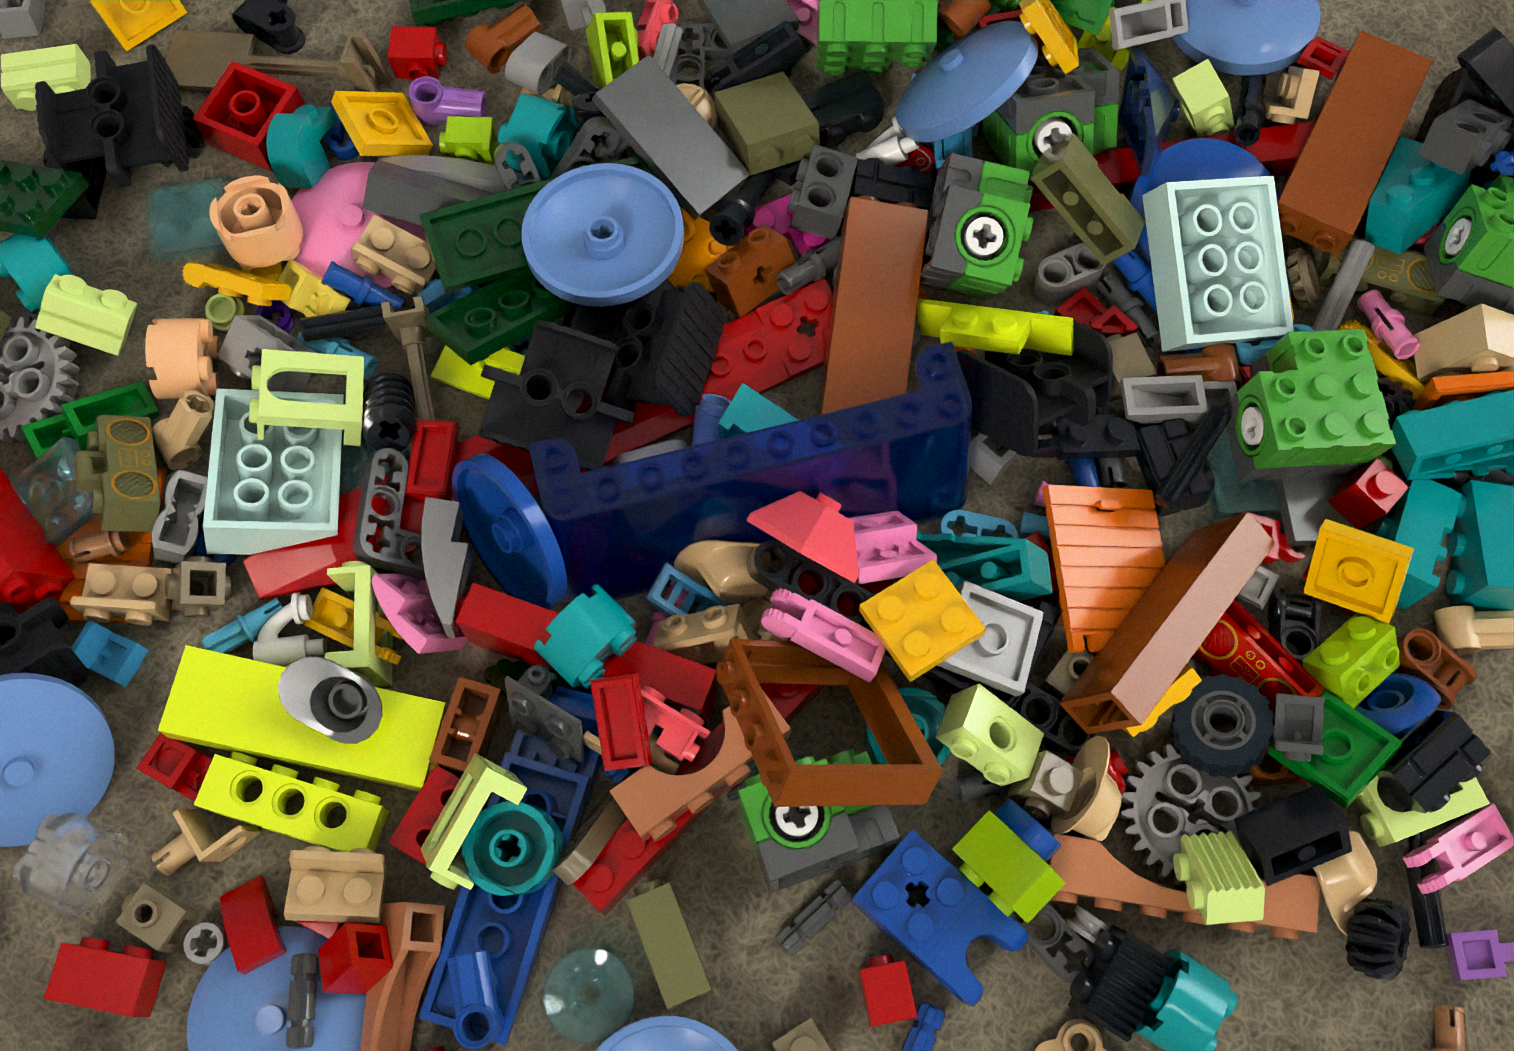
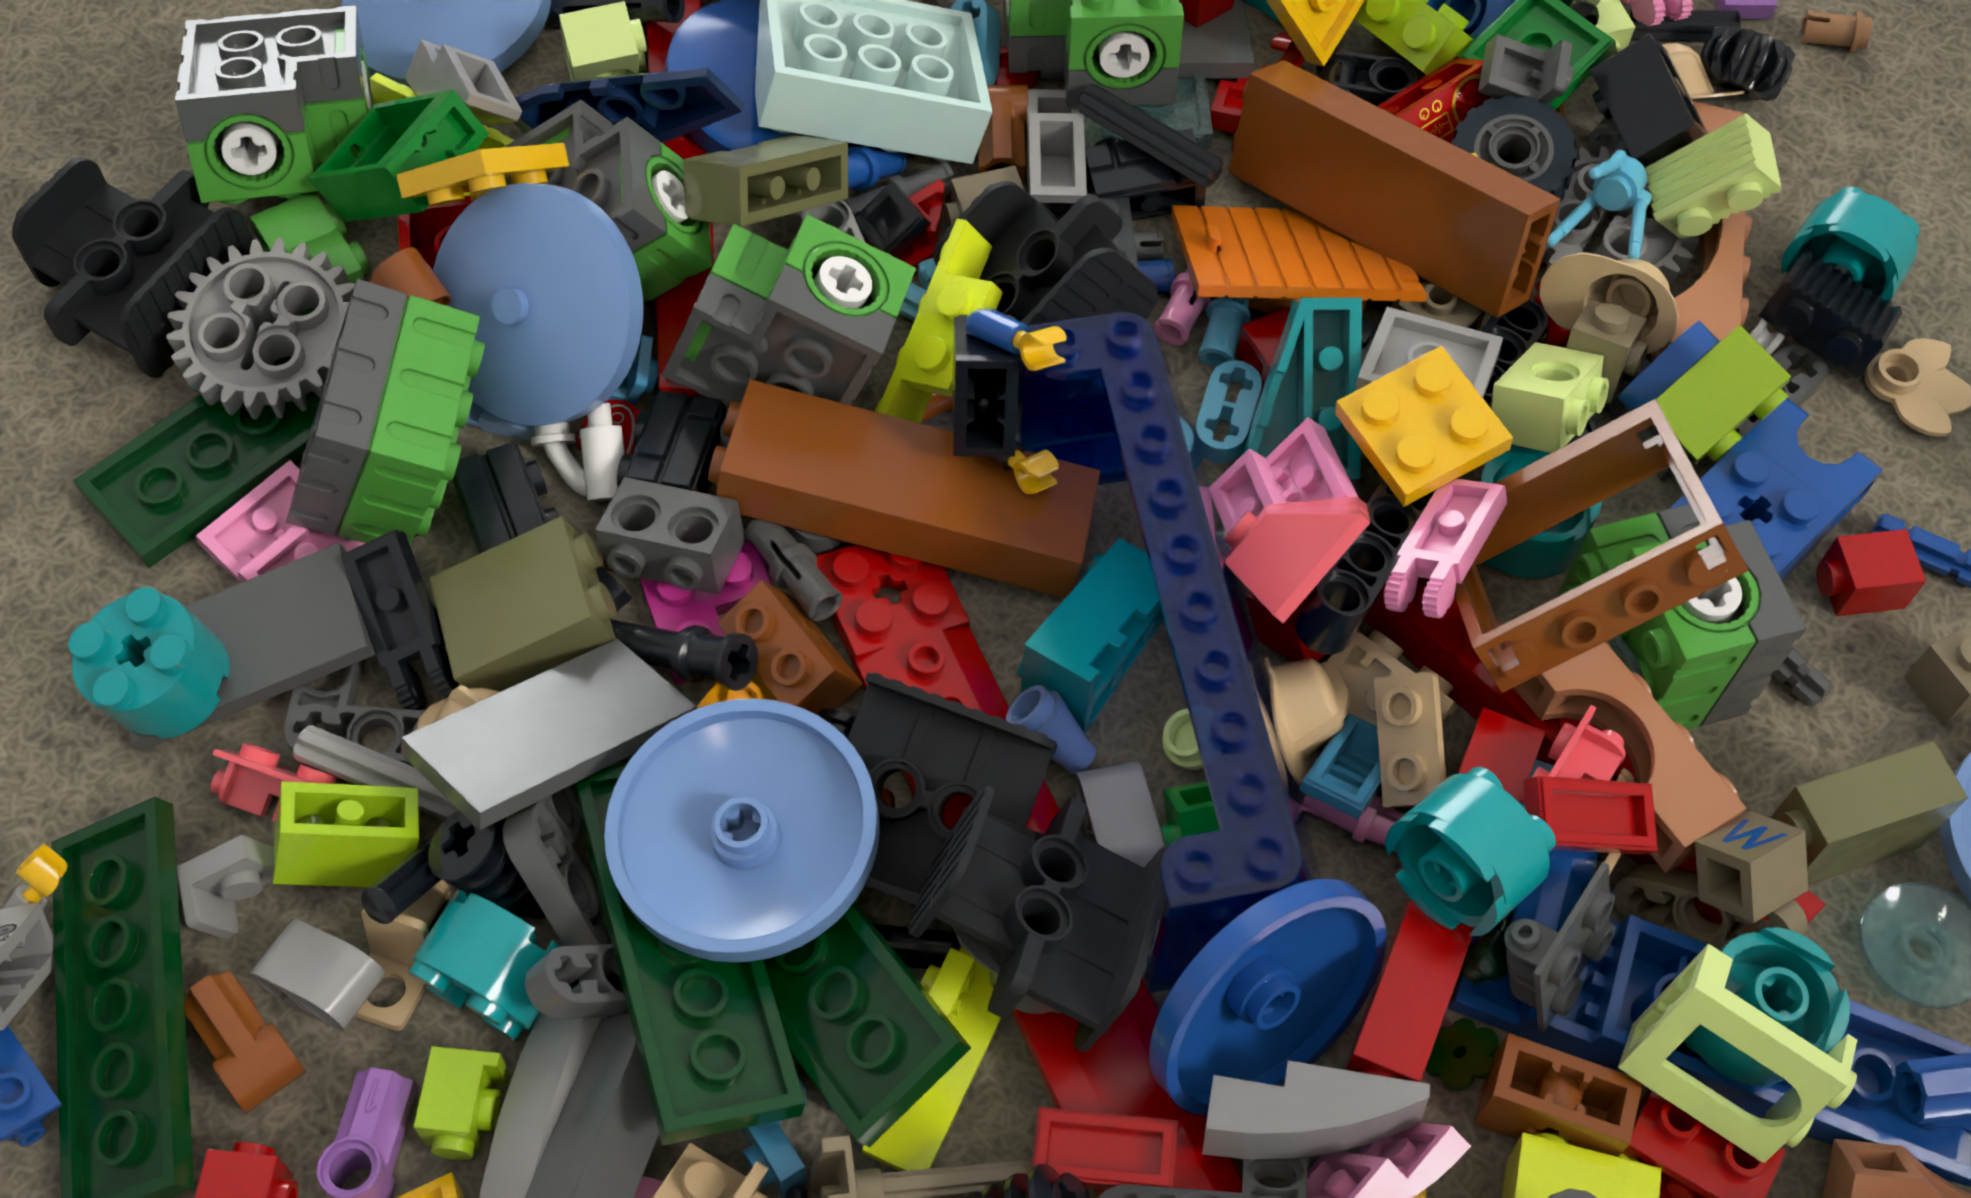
camera: 90 degrees left, 10 degrees down
(602, 841) = (1752, 866): none -> dark tan brick
(917, 333) = (987, 391): none -> black torso
(1096, 300) = (892, 220): none -> black tile
(1202, 801) = (1616, 187): none -> medium azure plant

